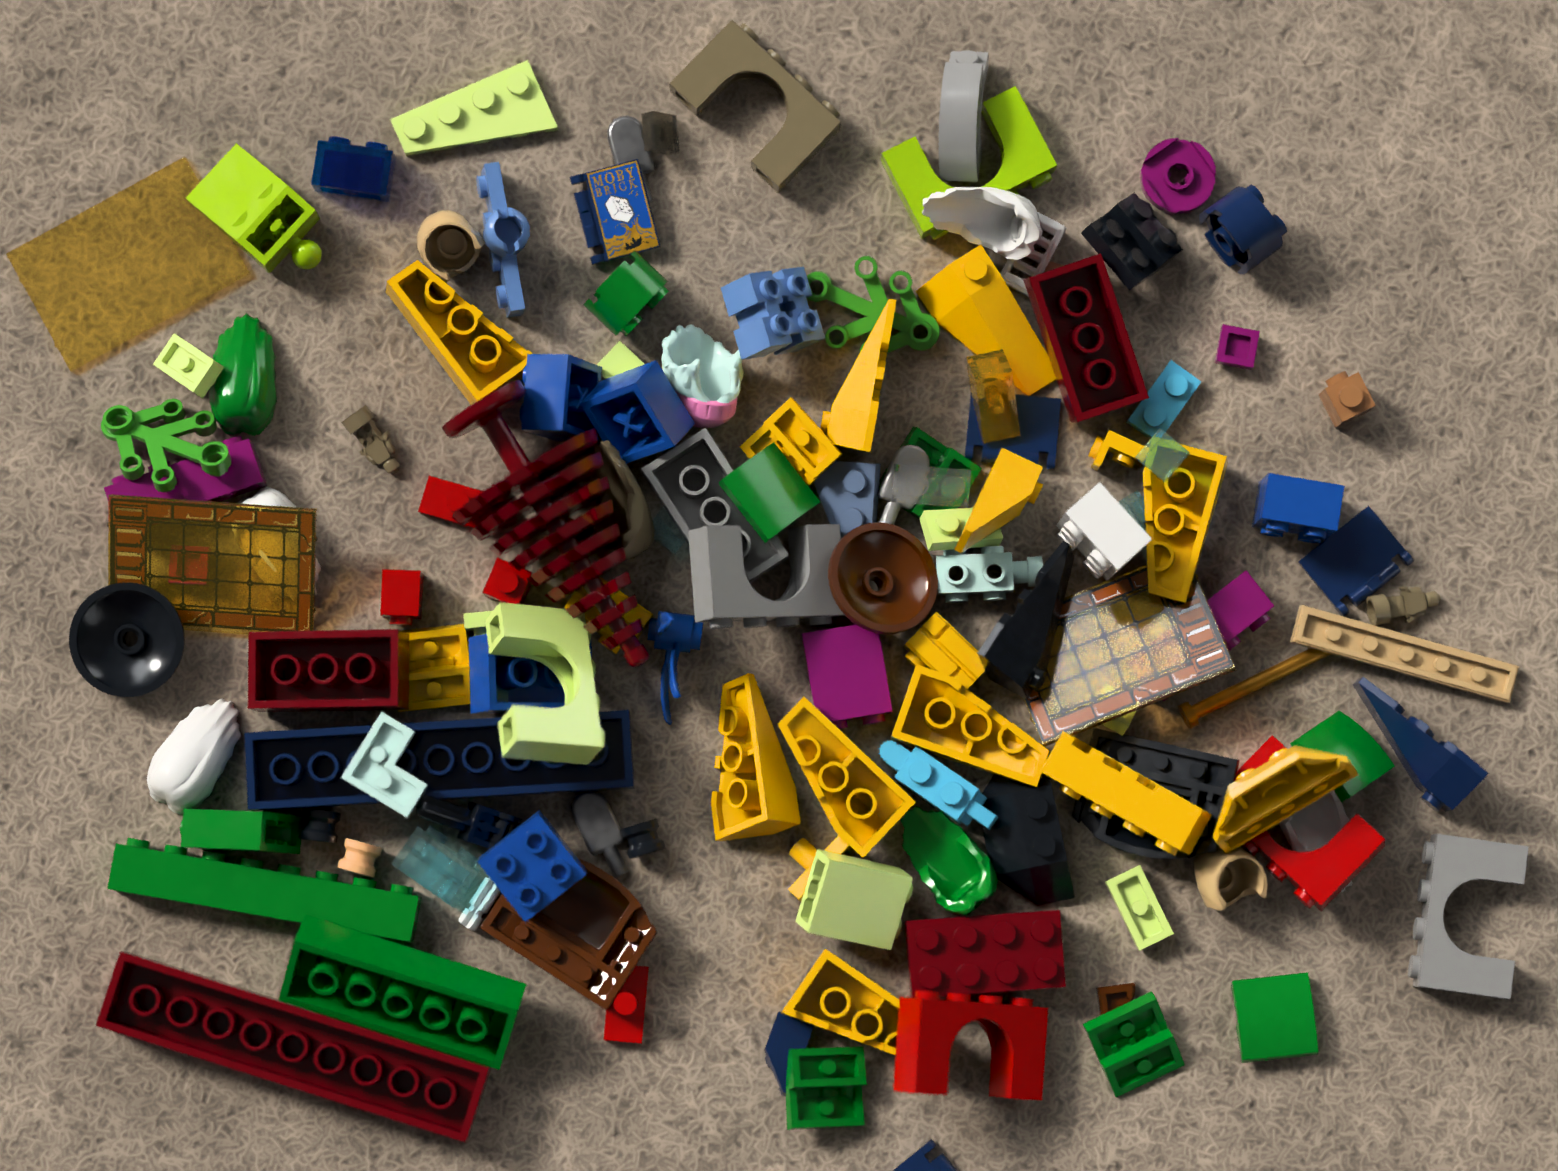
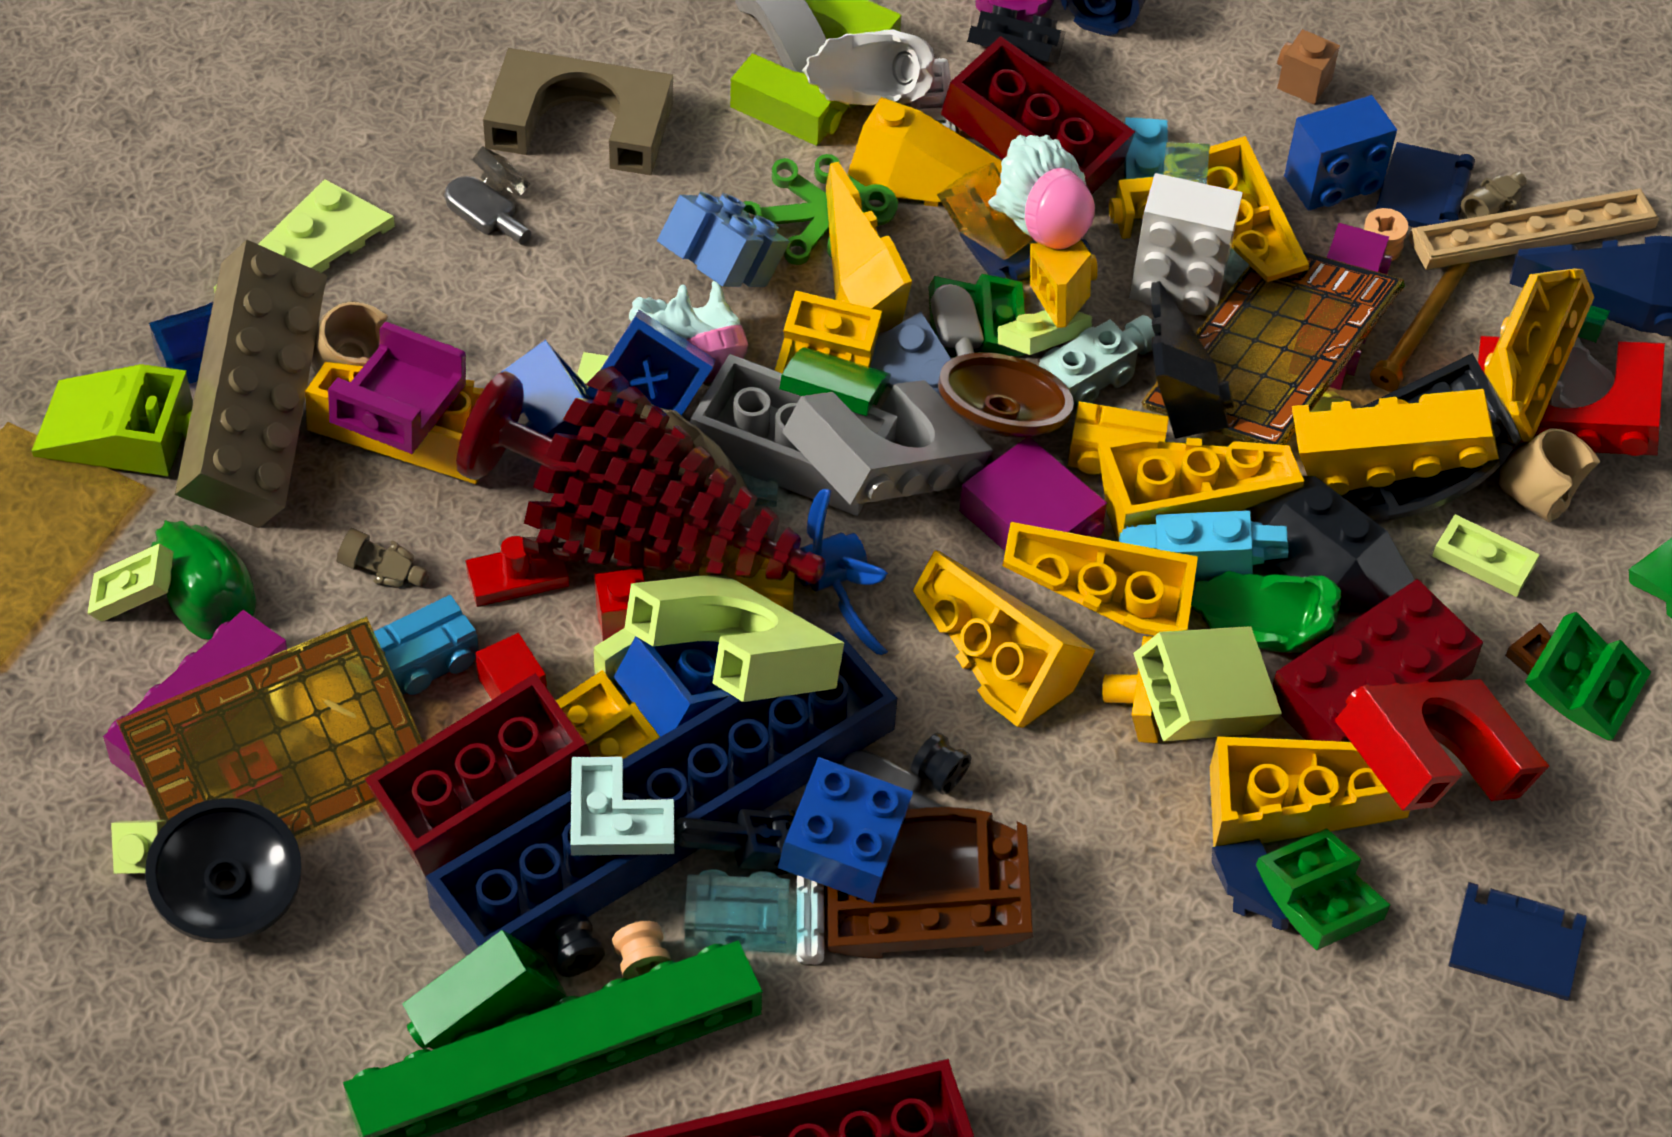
camera: 30 degrees left, 30 degrees down
(86, 578) = (132, 843): none -> yellowish green plate
(123, 424) = (87, 678): bright green plant -> none
(194, 756) = (377, 964): white hair -> none
(356, 248) = (251, 385): none -> dark tan brick
(356, 534) = (428, 645): none -> dark azure brick
(401, 992) = (789, 1040): green brick -> none
(448, 326) = (399, 389): none -> magenta panel
(505, 235) = (402, 295): medium blue plate -> none
(616, 211) = (501, 254): piece -> none
(626, 295) = (566, 299): green brick -> none
(627, 1012) = (1053, 949): red tile -> none
(931, 486) = (986, 306): clear plate -> none
(1031, 423) = (1044, 192): none -> hair
(1237, 347) = (1176, 80): magenta plate -> none
(1279, 593) = (1391, 224): none -> light nougat wheel

